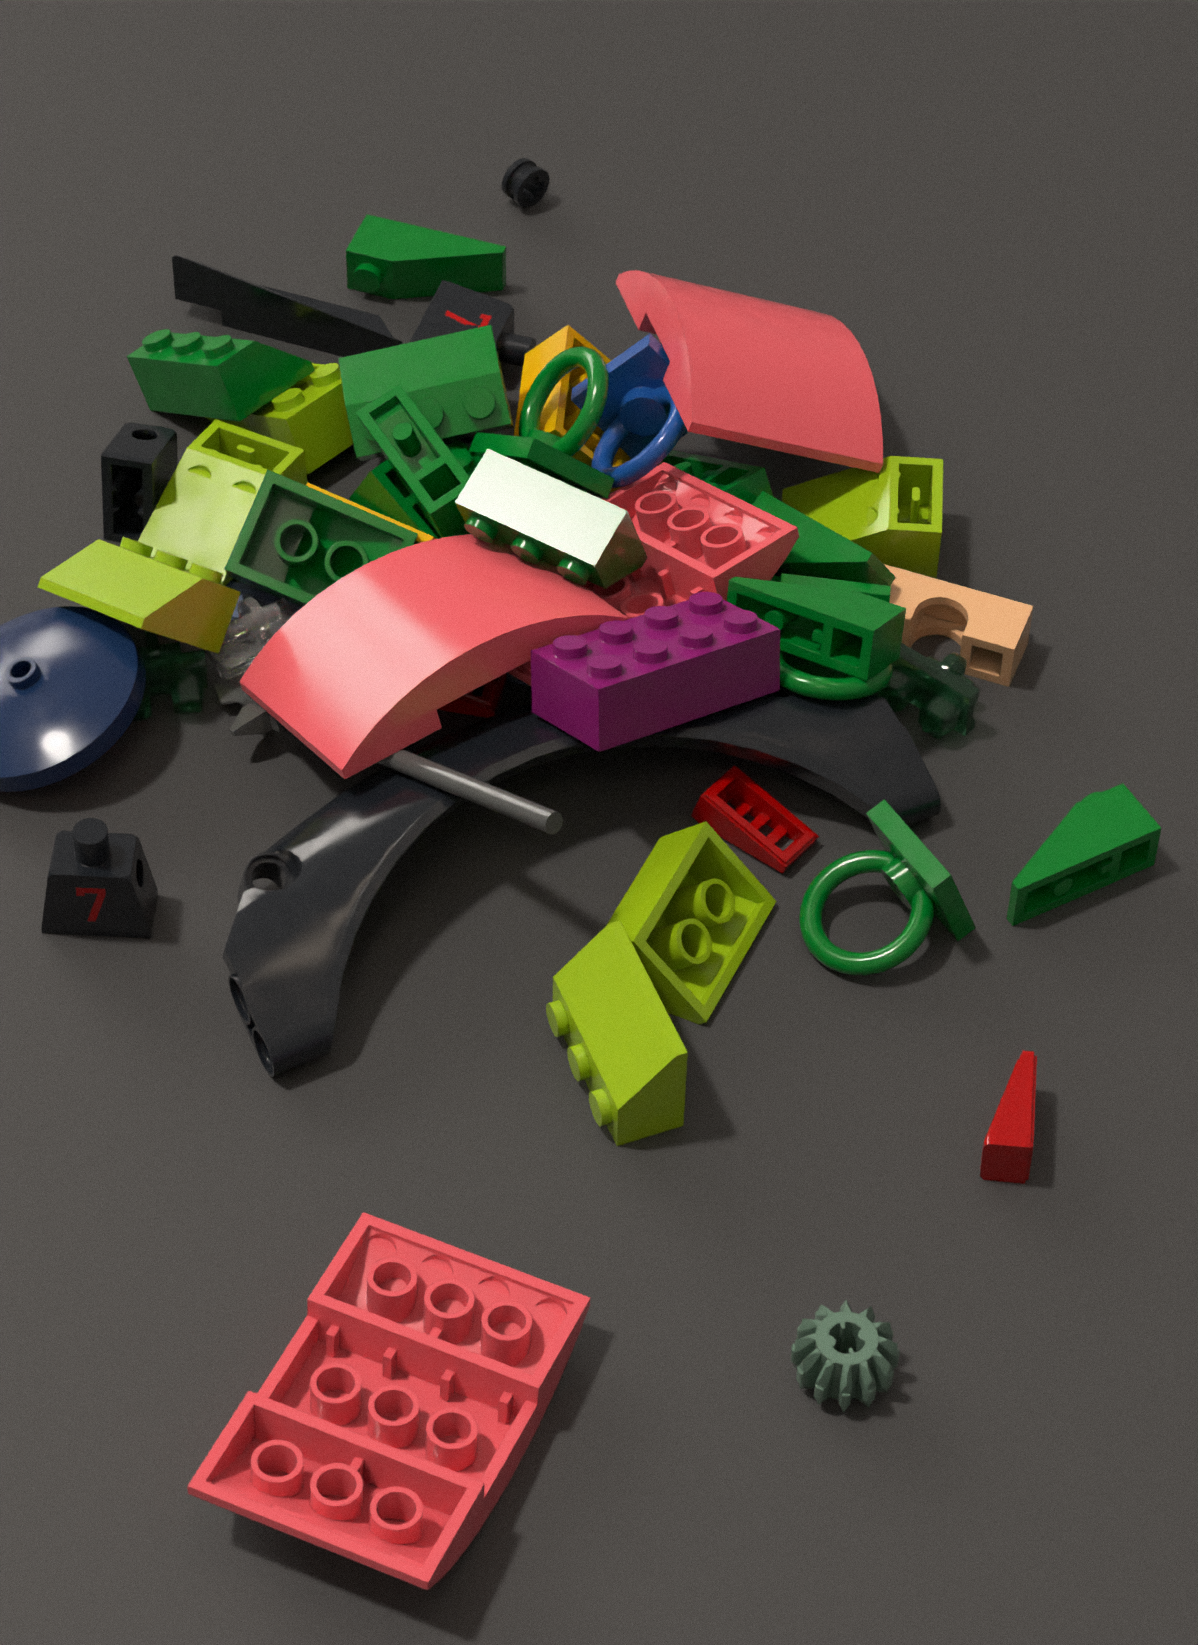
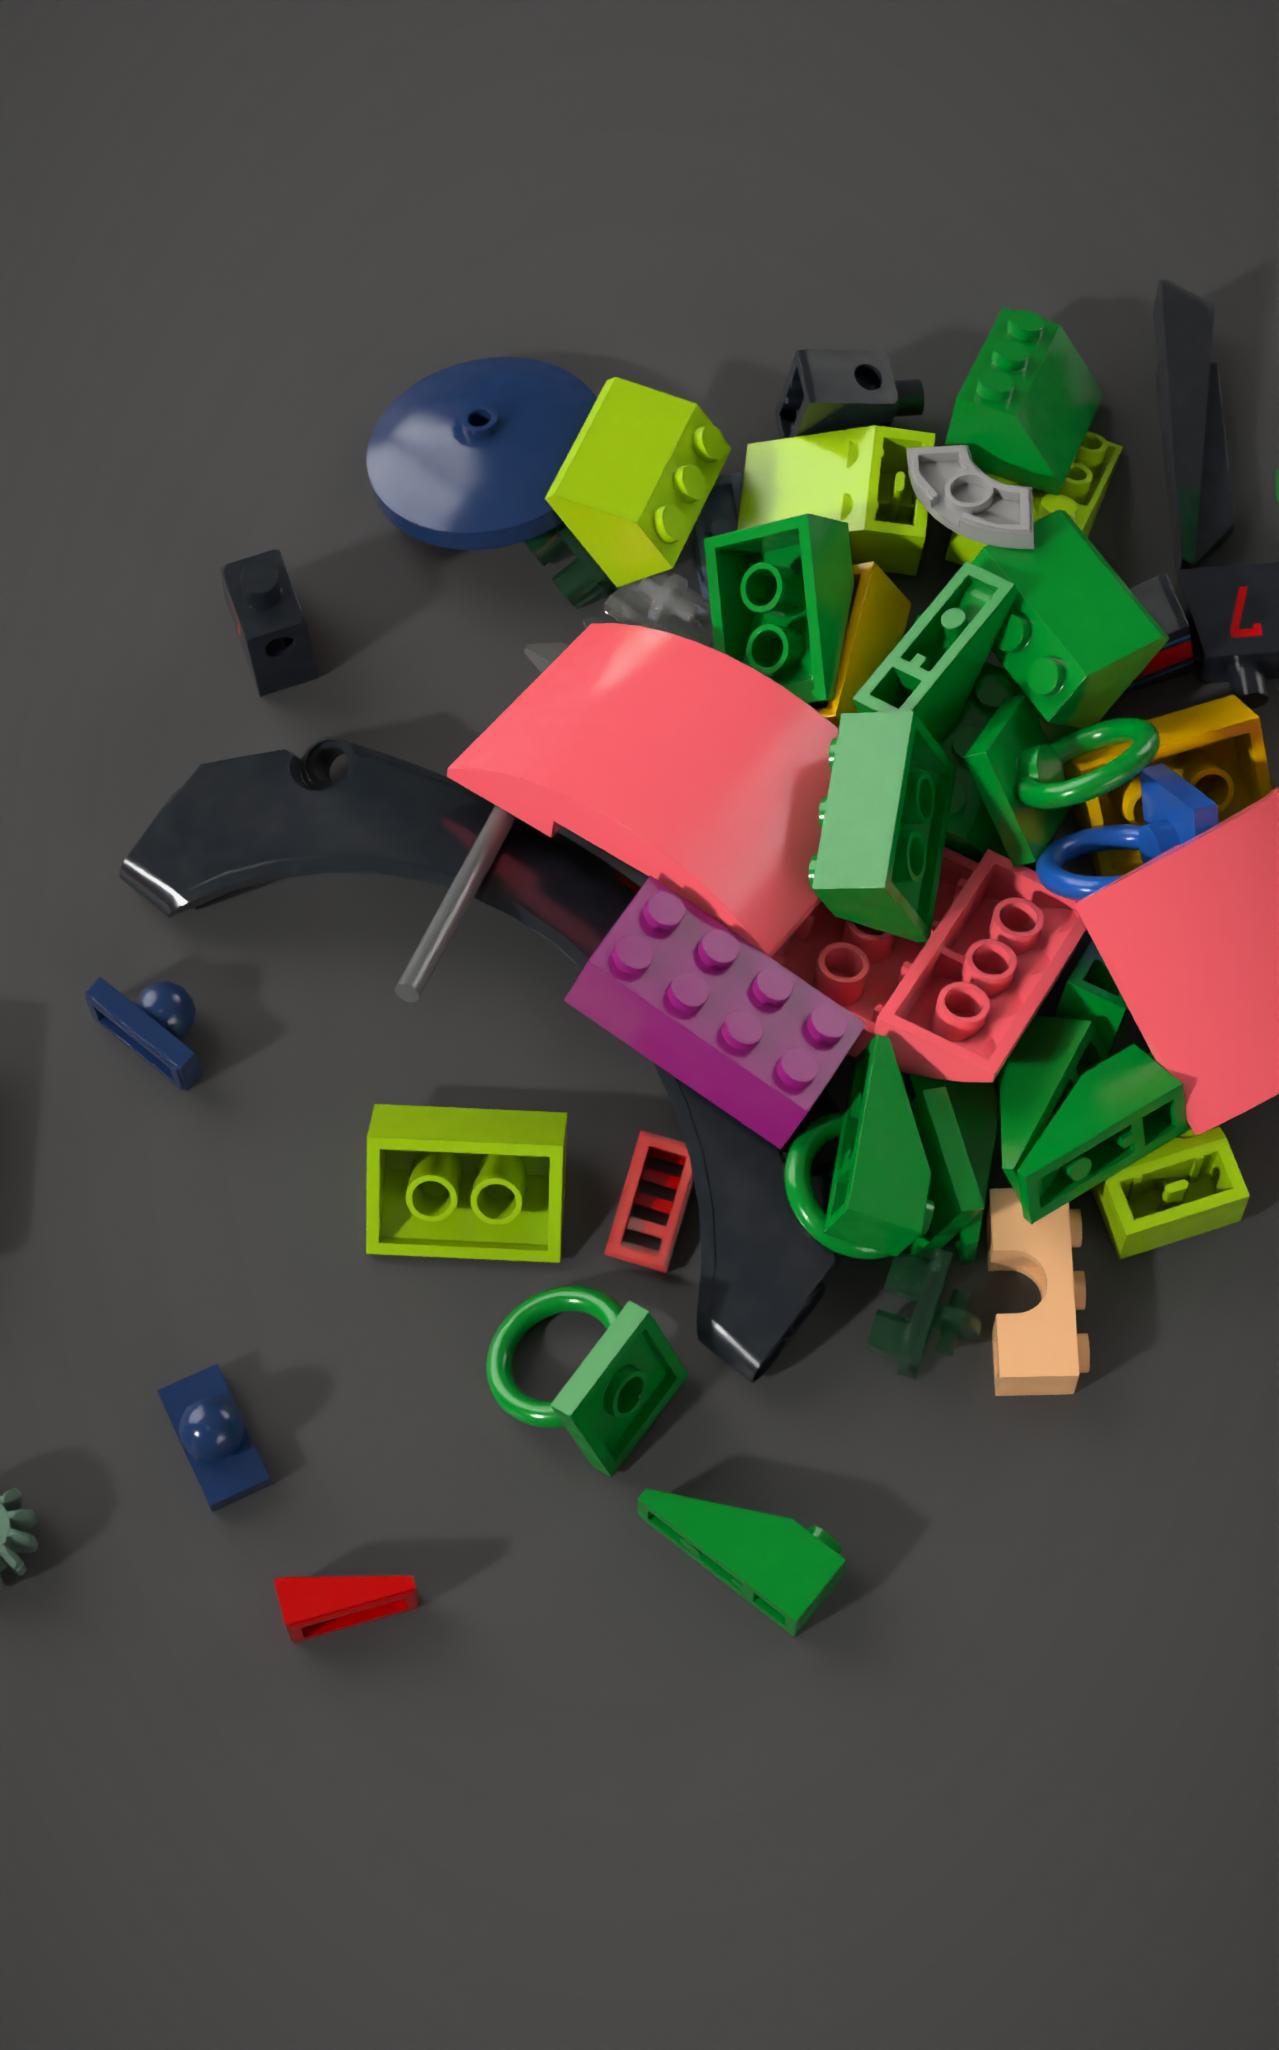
camera: 70 degrees right, 20 degrees up
(296, 402) = (970, 500): none -> light grey tile
(430, 1093) = (150, 1026): none -> dark blue tile
(620, 1038) = (273, 1178): lime slope -> none
(824, 1169) = (214, 1437): none -> dark blue tile
(844, 499) = (1103, 1126): none -> green slope

